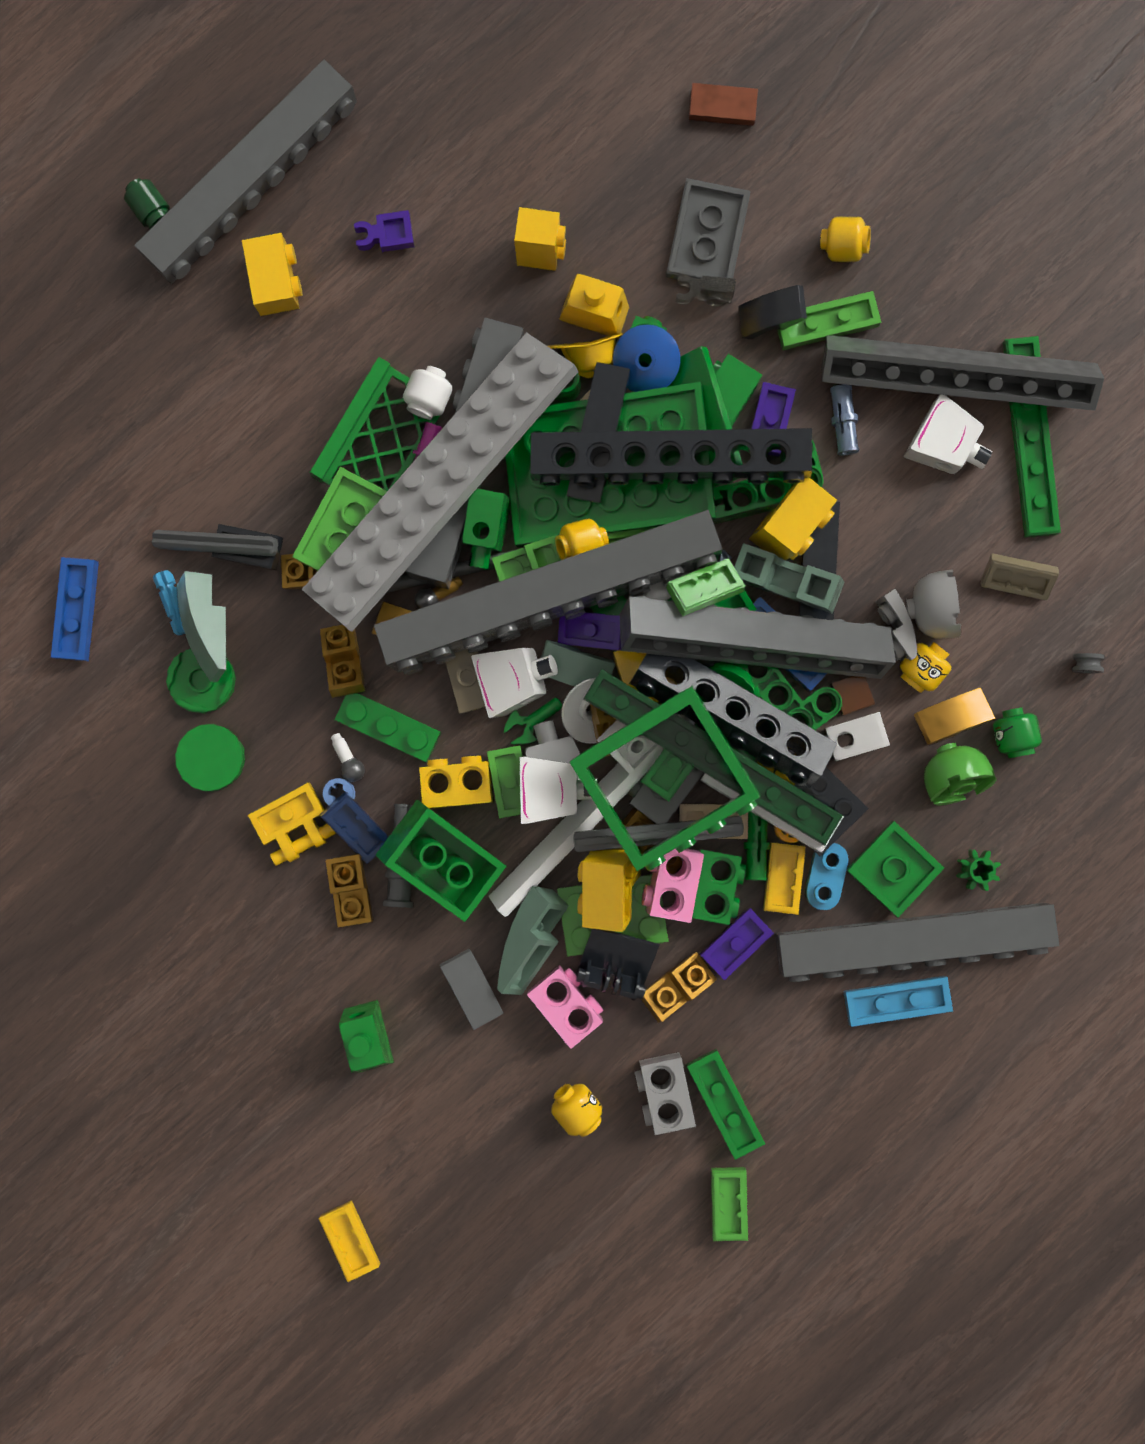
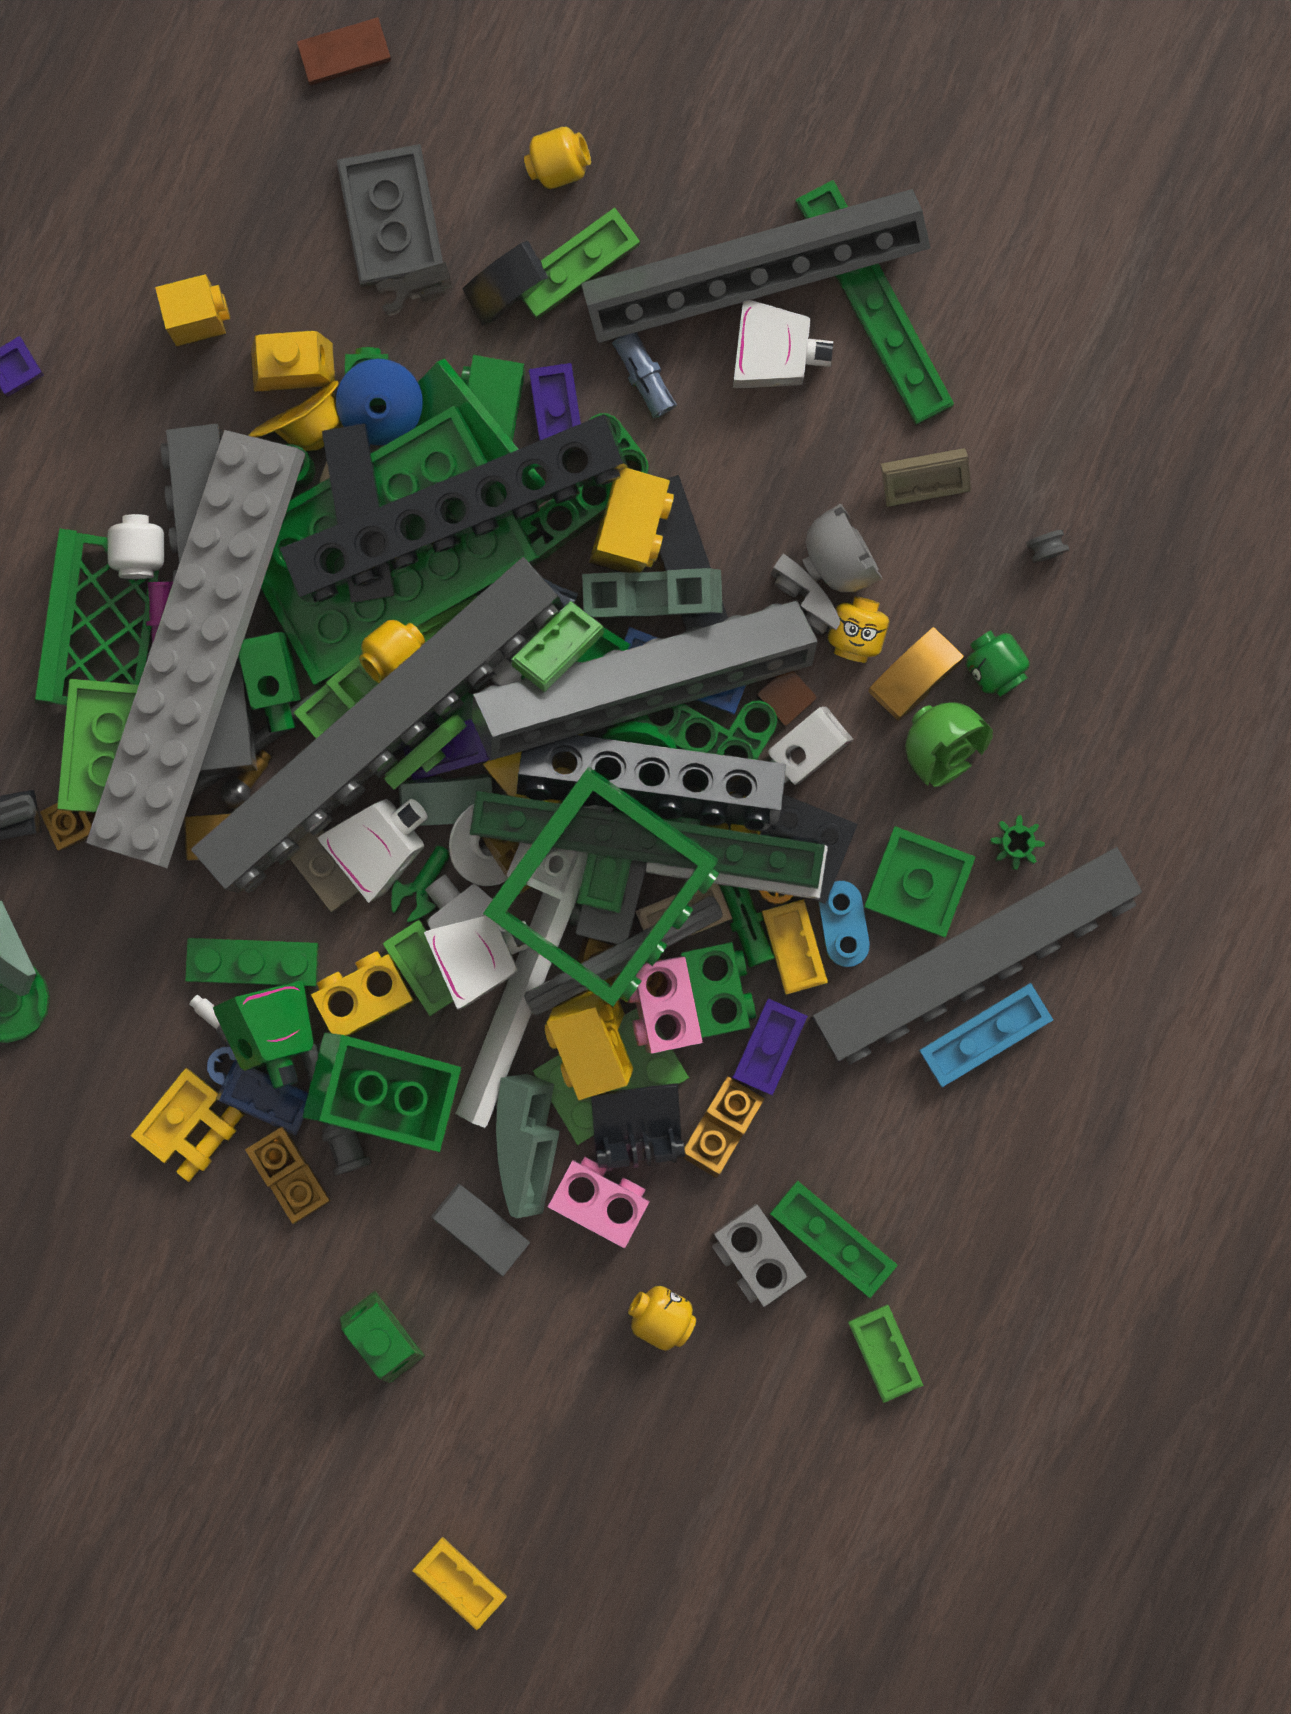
camera: 30 degrees left, 0 degrees up
(210, 757) = (55, 1087): green tile -> none
(342, 661) = (165, 907): pearl gold slope -> none
(378, 780) = (268, 1030): none -> green torso
(575, 627) = (427, 753): none -> bright green plate

